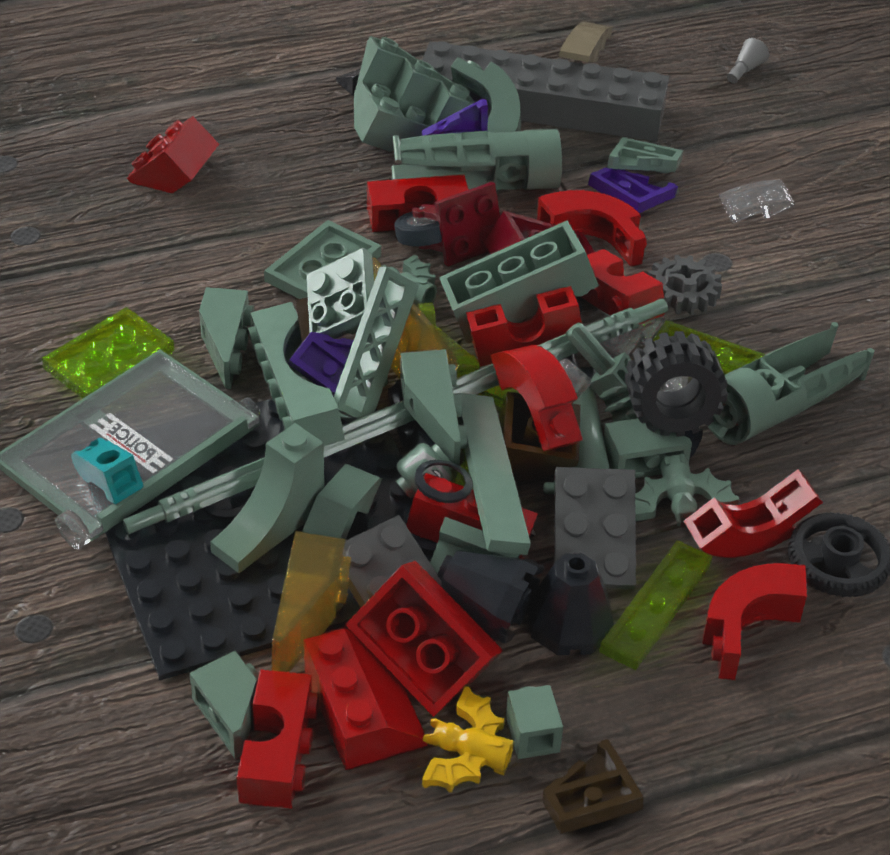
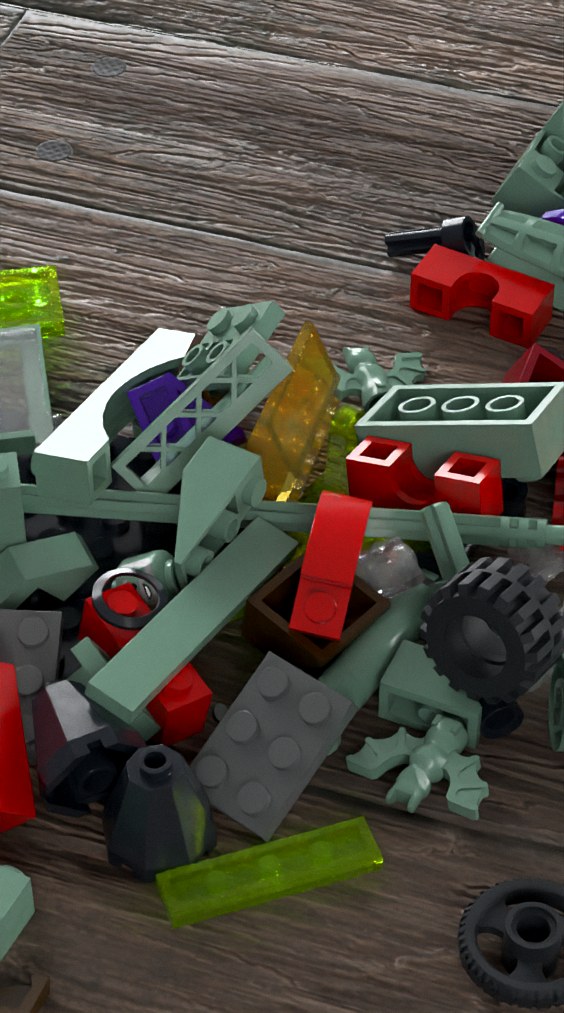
camera: 40 degrees right, 0 degrees up
(173, 158) = (269, 129): red slope -> none
(224, 329) = (121, 331): sand green slope -> none
(317, 250) = (332, 302): sand green plate -> none
(354, 181) = (454, 234): none -> black piece
(453, 224) = (482, 334): dark red plate -> none
(747, 597) = (352, 924): red arch -> none
(755, 525) = (457, 848): red arch -> none

